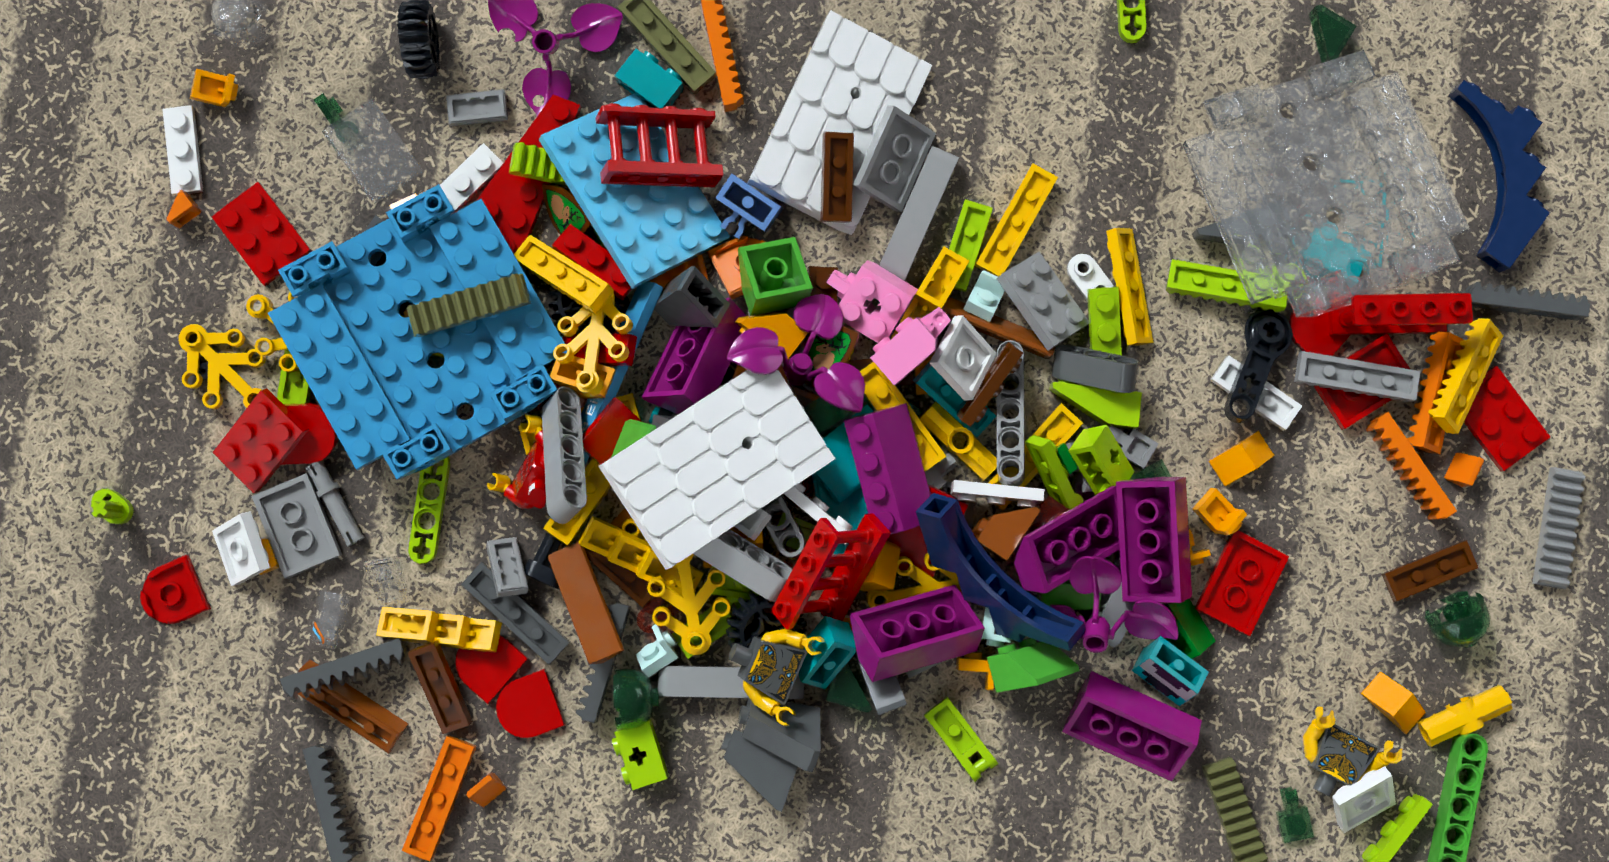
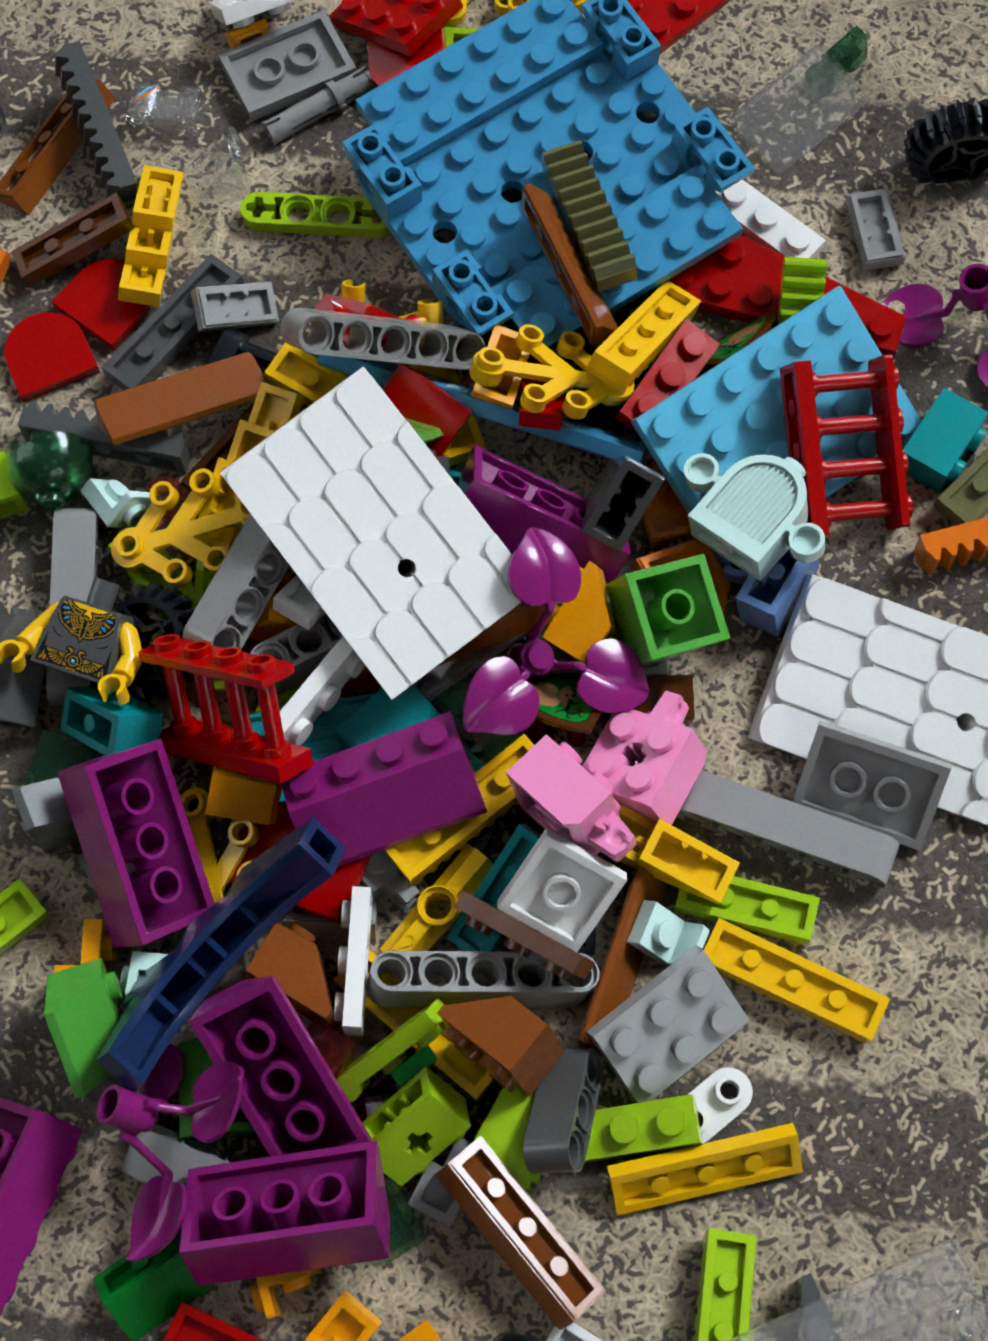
camera: 90 degrees right, 15 degrees down
(508, 322) = (567, 264): none -> dark orange slope
(708, 210) = (753, 511): none -> light aqua piece
(837, 177) = (830, 697): reddish brown plate -> none
(1060, 397) = (506, 1040): none -> dark orange slope
(1167, 399) = (521, 1233): none -> dark orange slope
(1170, 671) = (79, 1258): teal brick -> none

